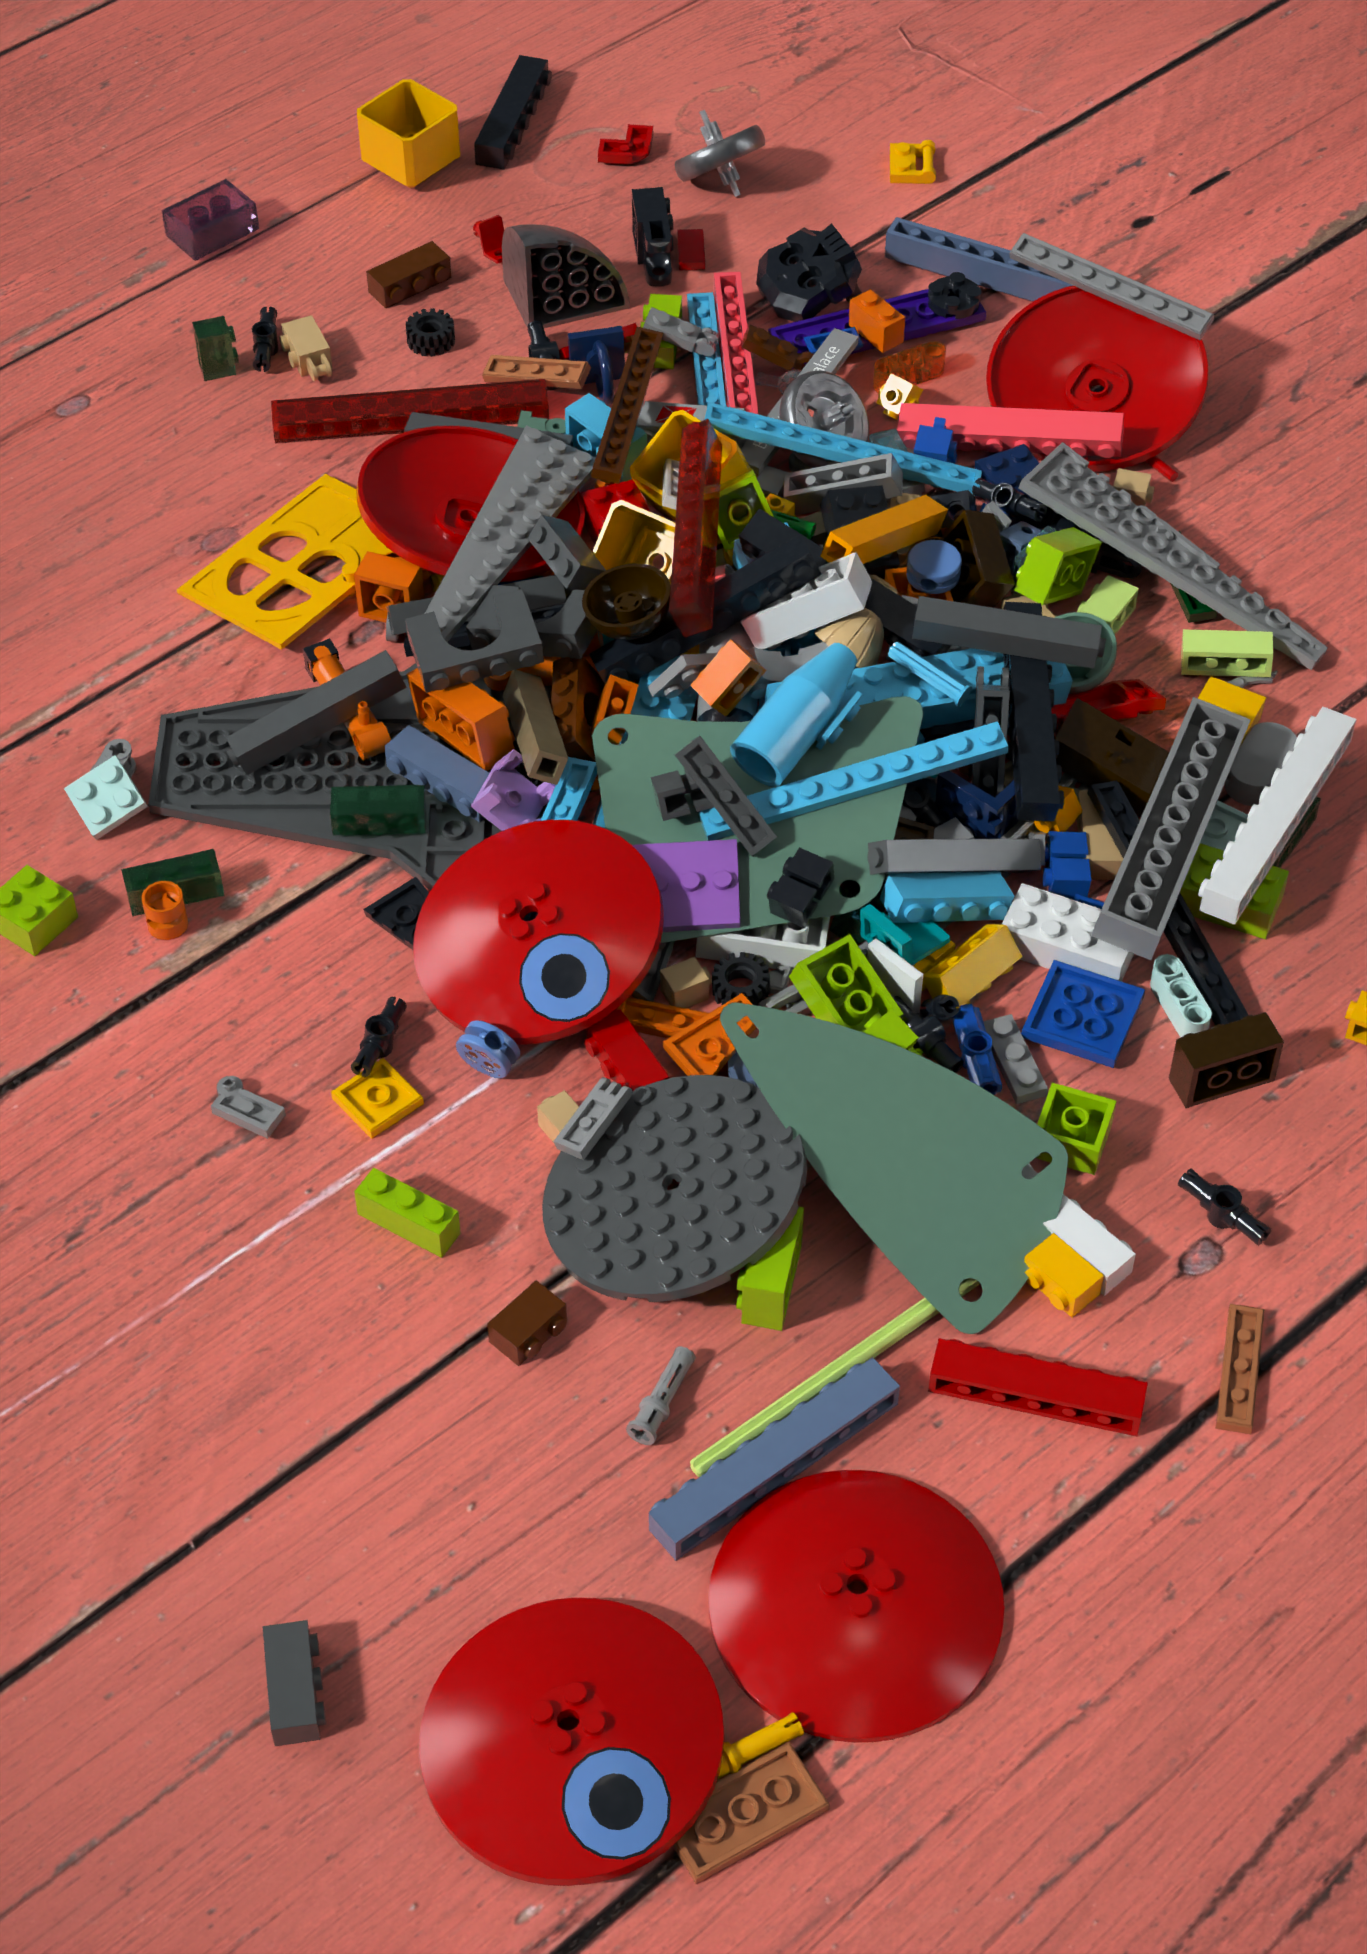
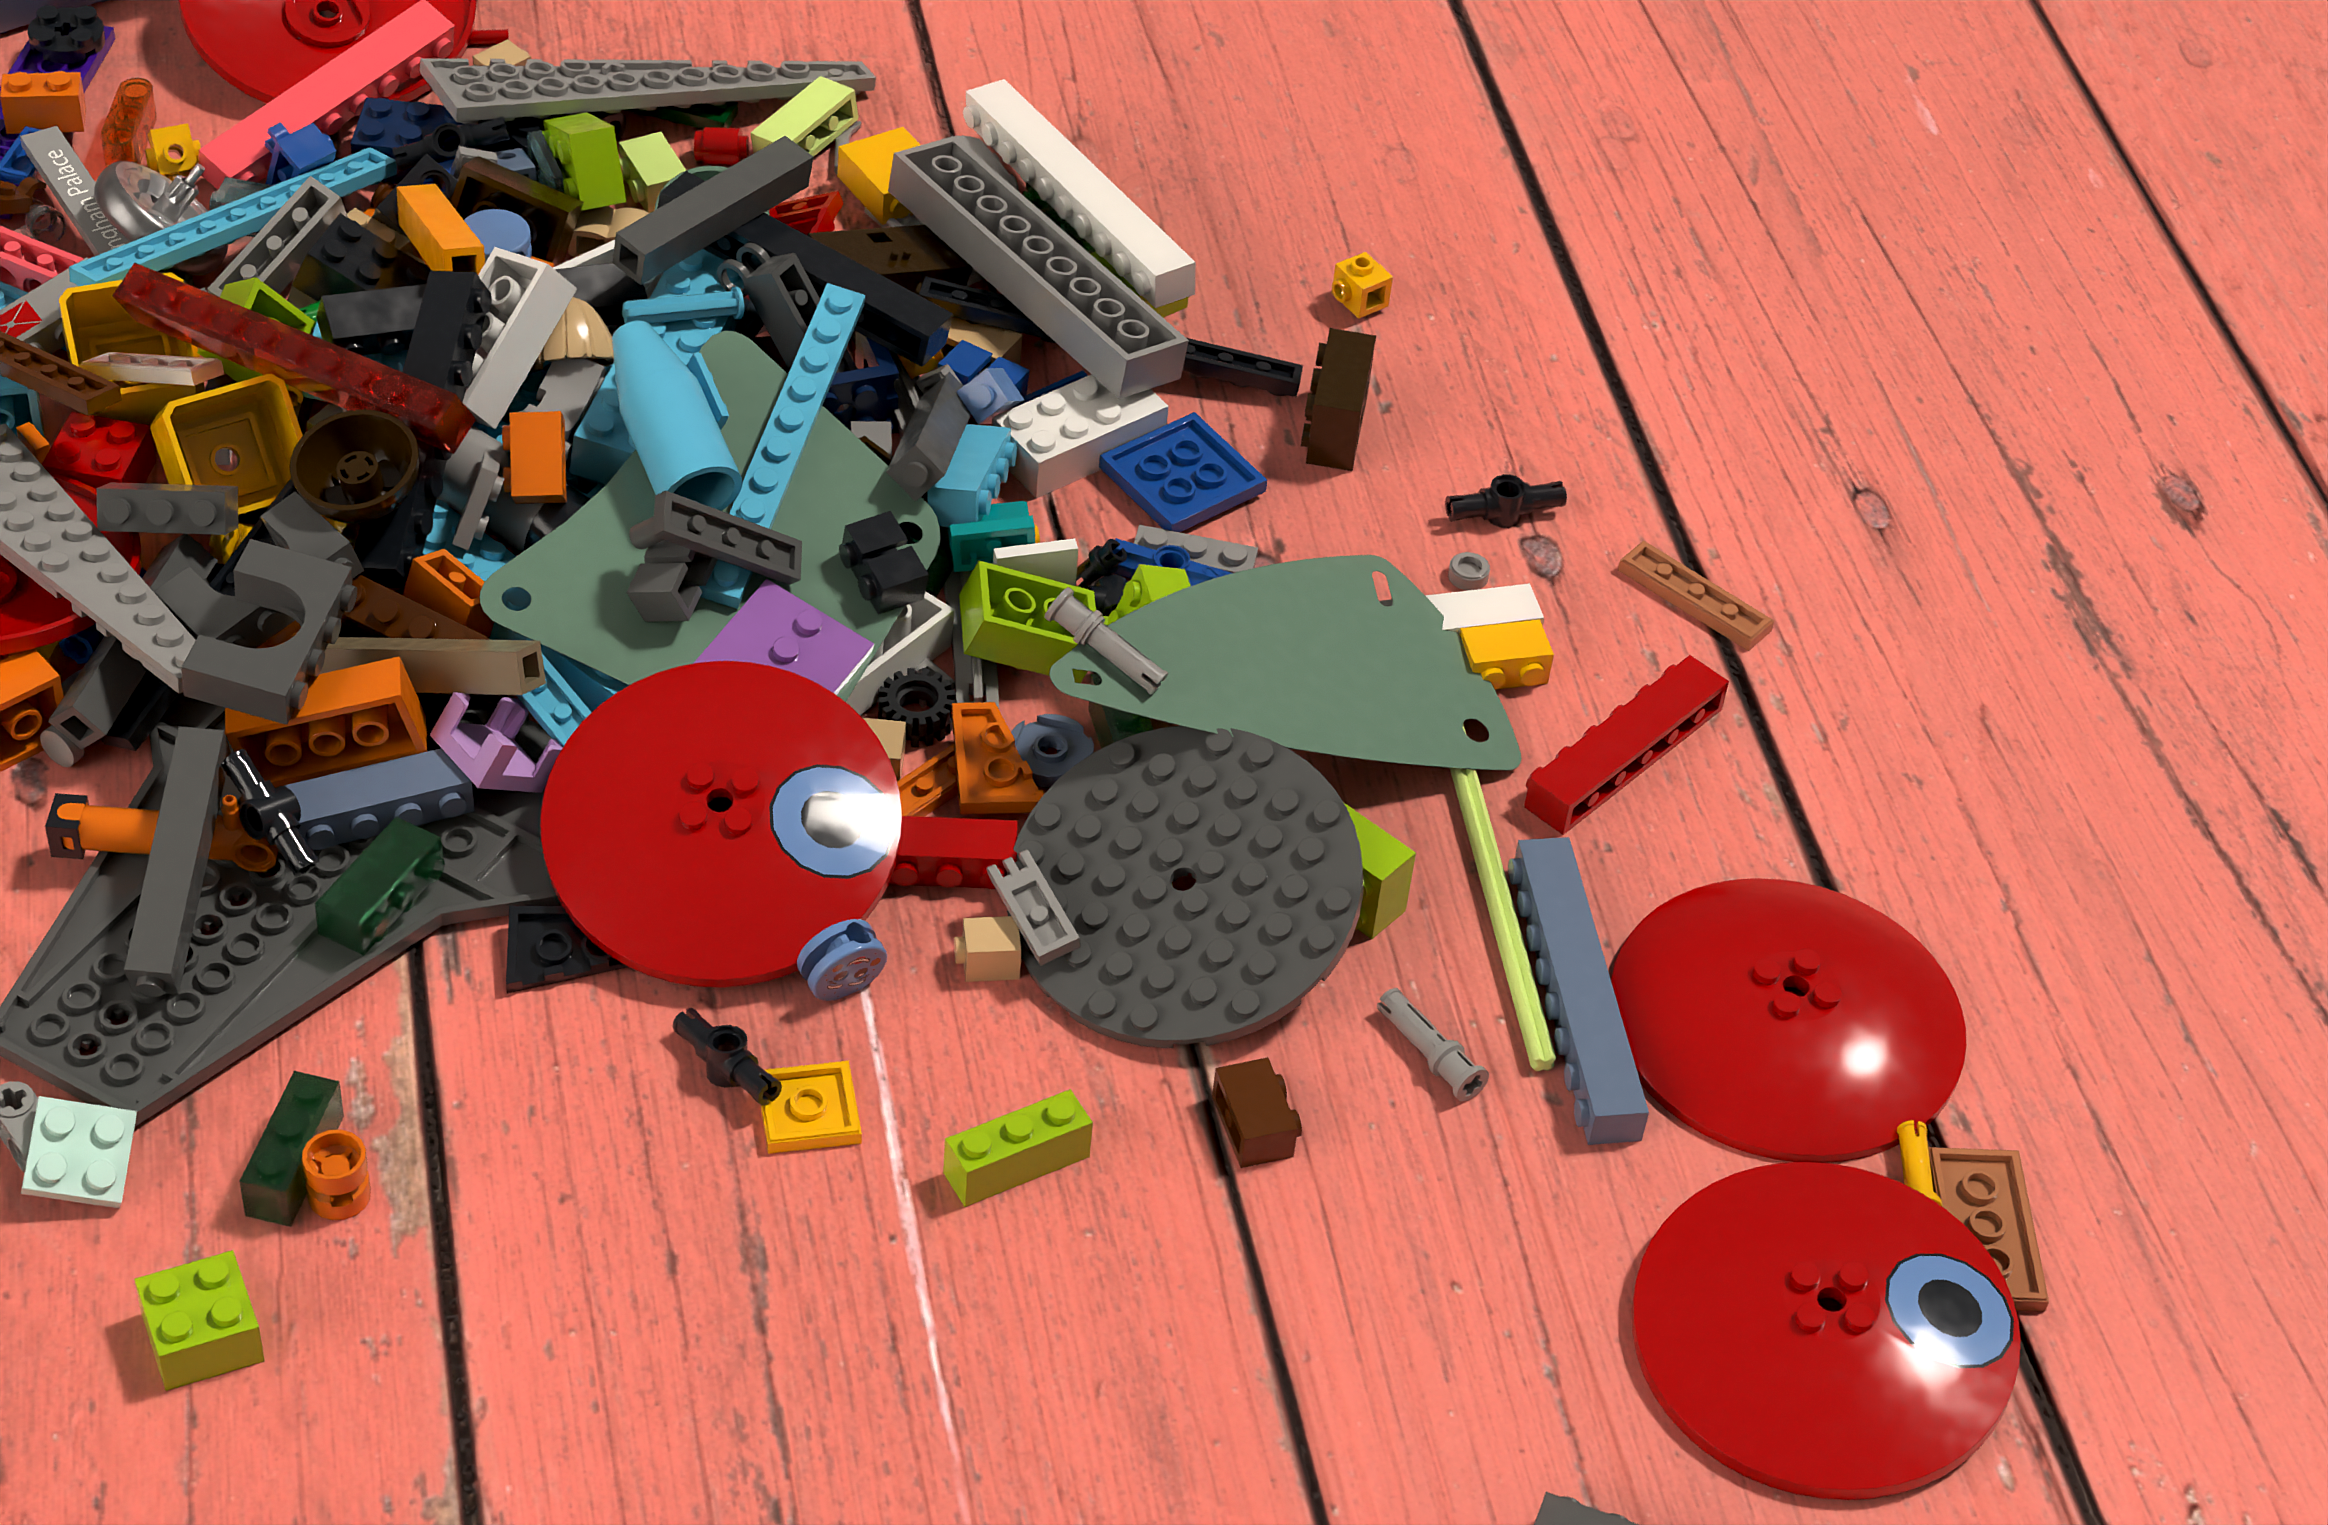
camera: 65 degrees left, 5 degrees down
(246, 1107) = (724, 1238): light grey hinge -> none
(375, 728) = (269, 812): none -> black pin
(782, 1006) = (1090, 629): none -> light grey pin
(974, 964) = (1059, 504): yellow brick -> none
(1037, 870) = (990, 395): none -> medium blue brick
(1079, 1123) = (1334, 530): lime brick -> none
(1139, 1219) = (1468, 571): none -> light grey tile
(1167, 625) = (720, 146): none -> red brick
(1179, 996) = (1226, 396): light aqua beam -> none

